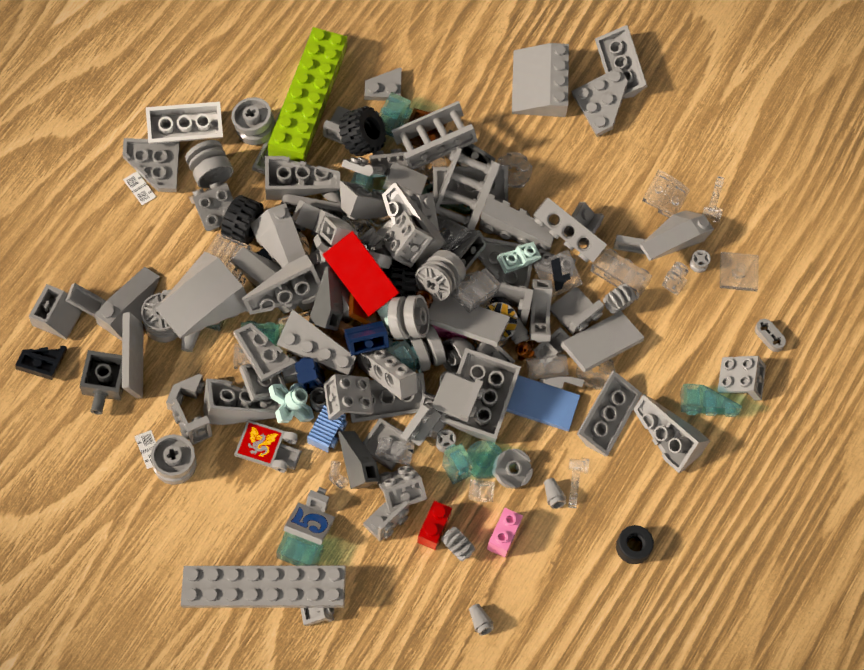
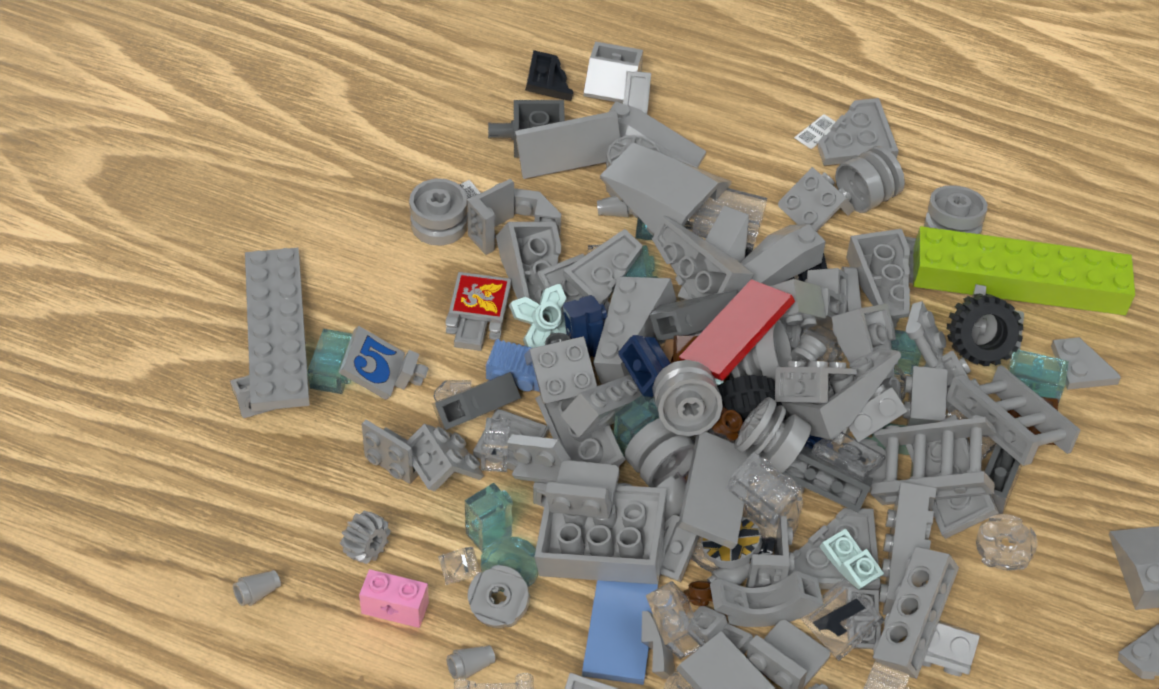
camera: 85 degrees right, 15 degrees down
(184, 122) = (922, 146): white slope -> none
(239, 217) = (794, 207): black tyre -> none
(434, 525) = (398, 506): red brick -> none
(443, 437) = (524, 502): light grey wheel -> none

